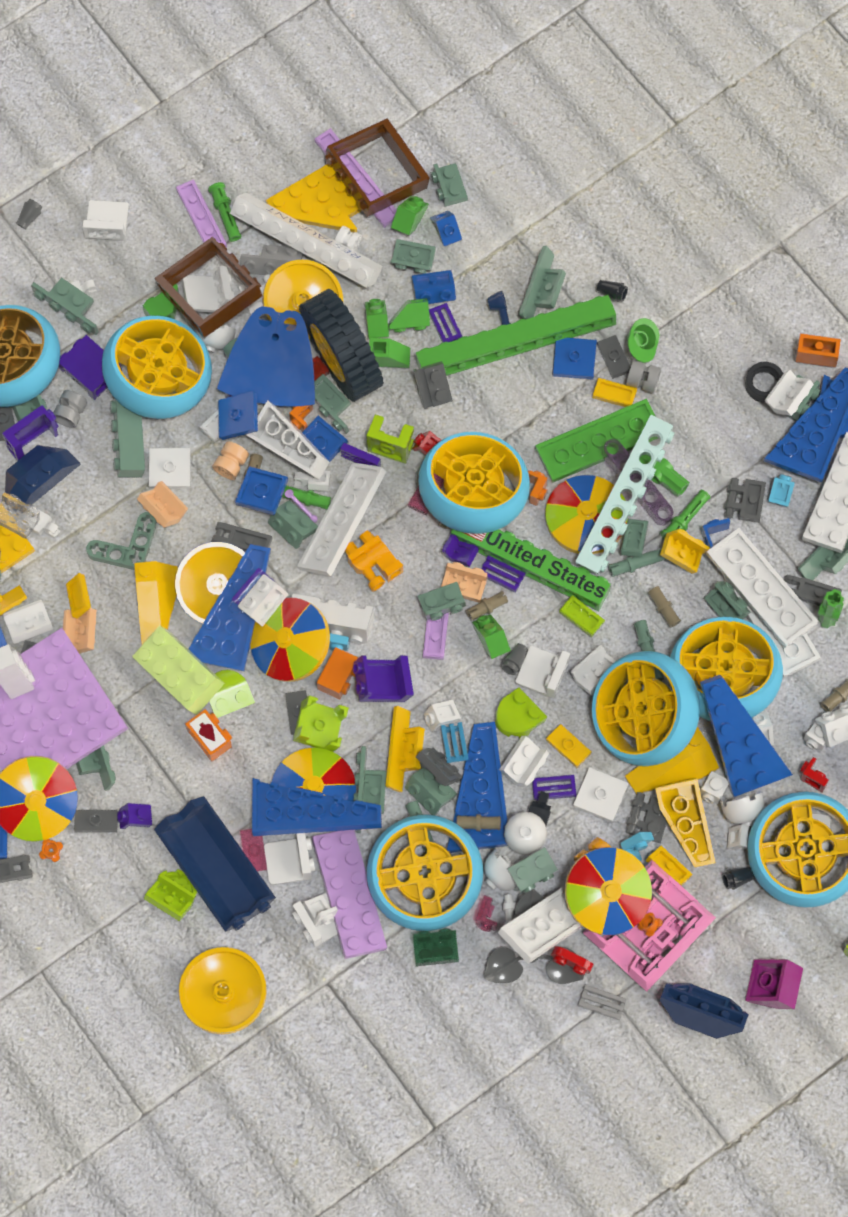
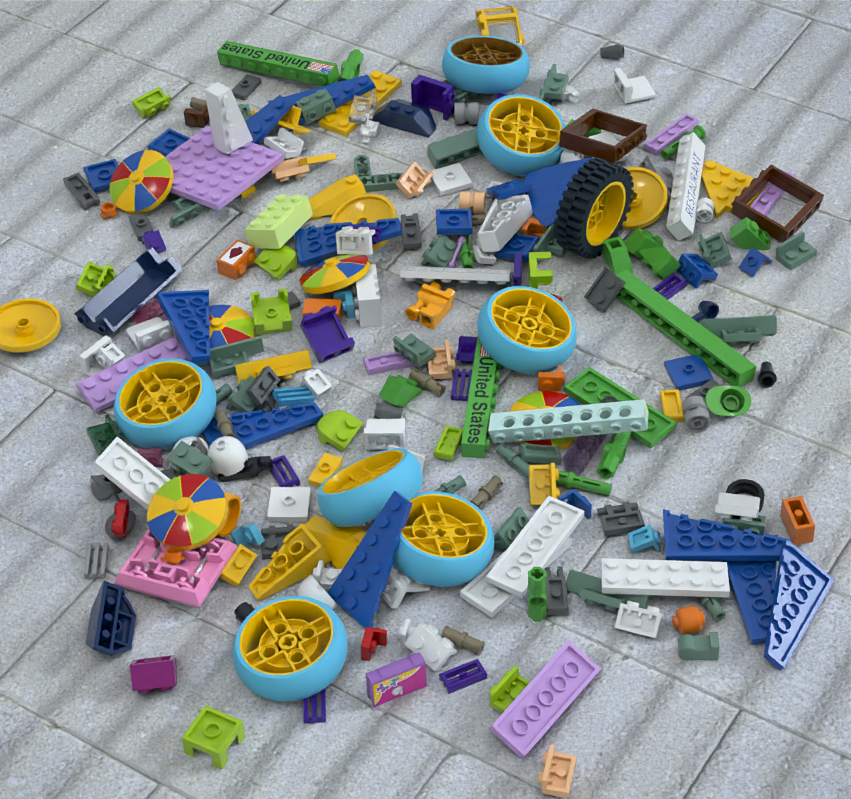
camera: 70 degrees right, 25 degrees down
(524, 762) = (295, 441): white bracket -> none

